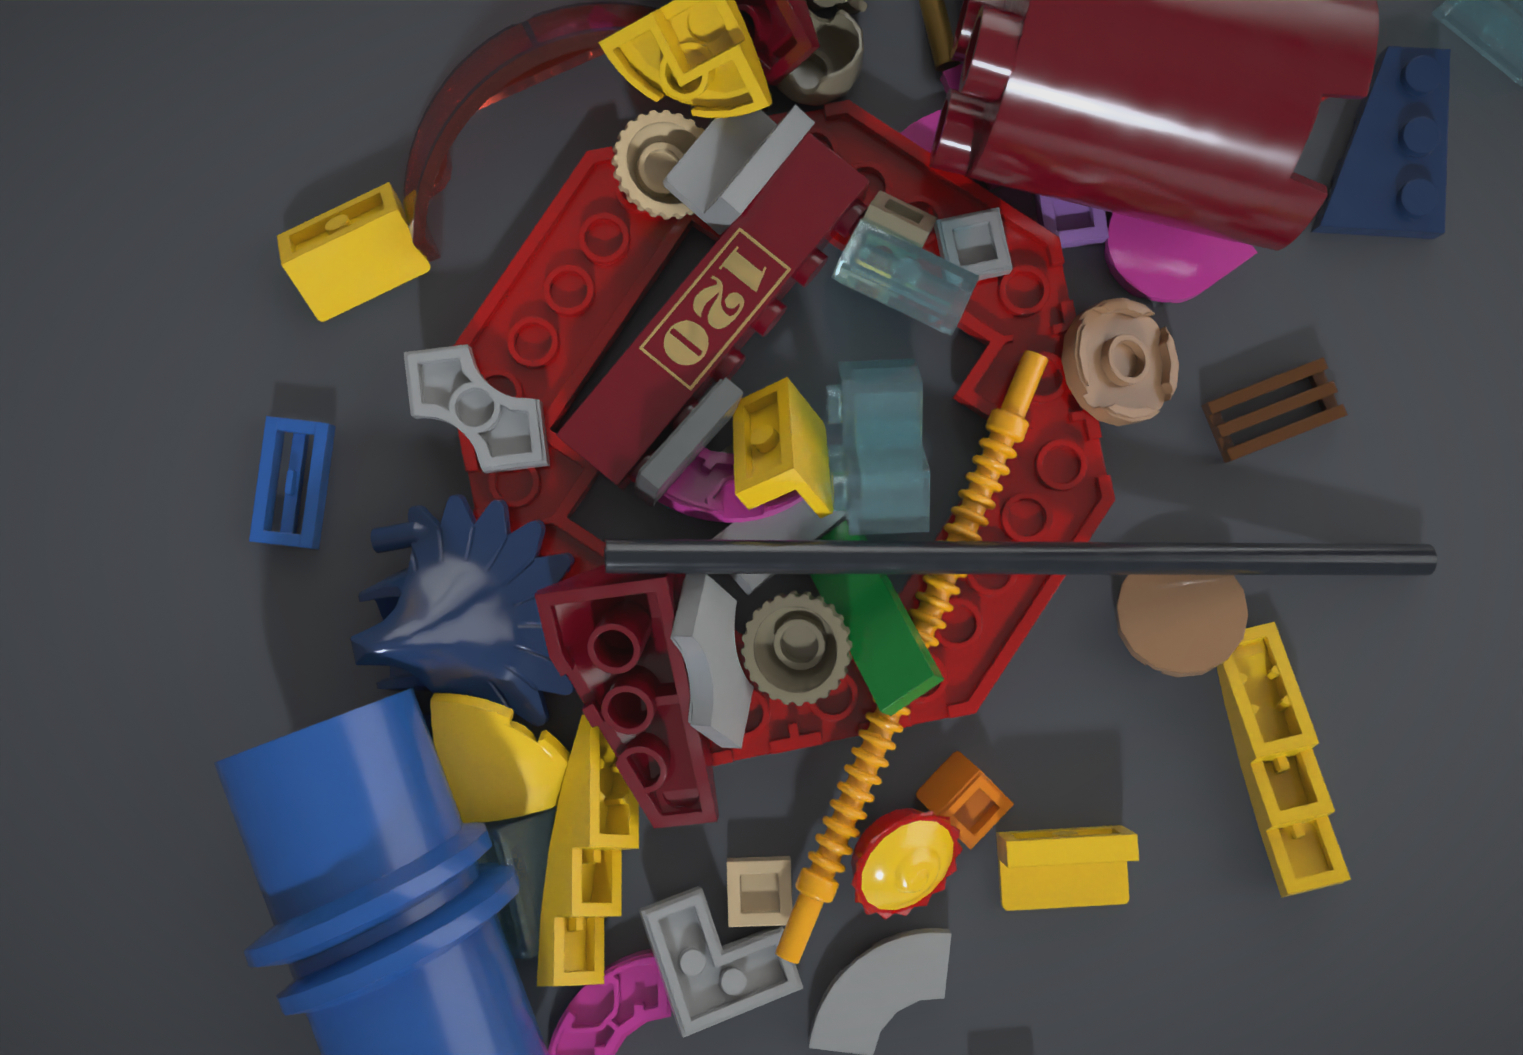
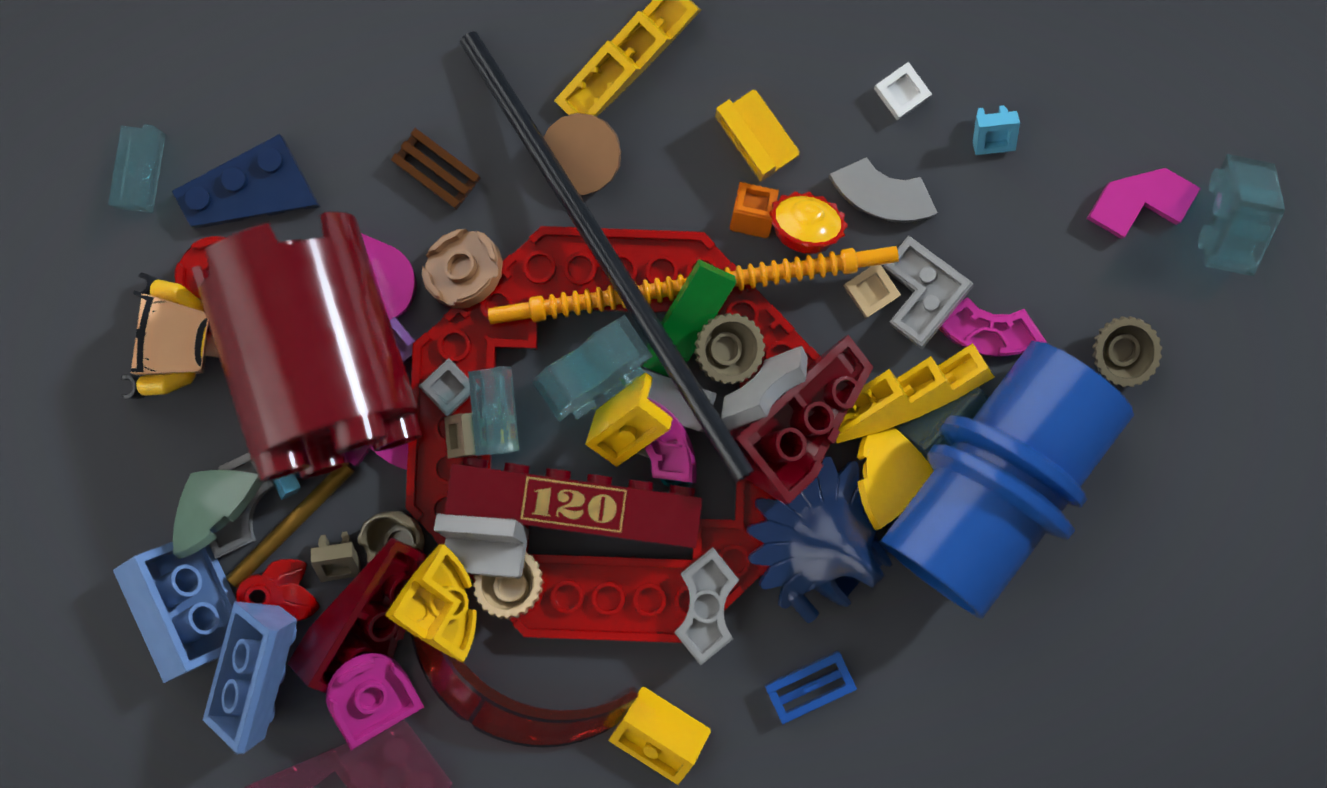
camera: 120 degrees left, 0 degrees up
(687, 441) = (656, 473): dark grey tile -> none

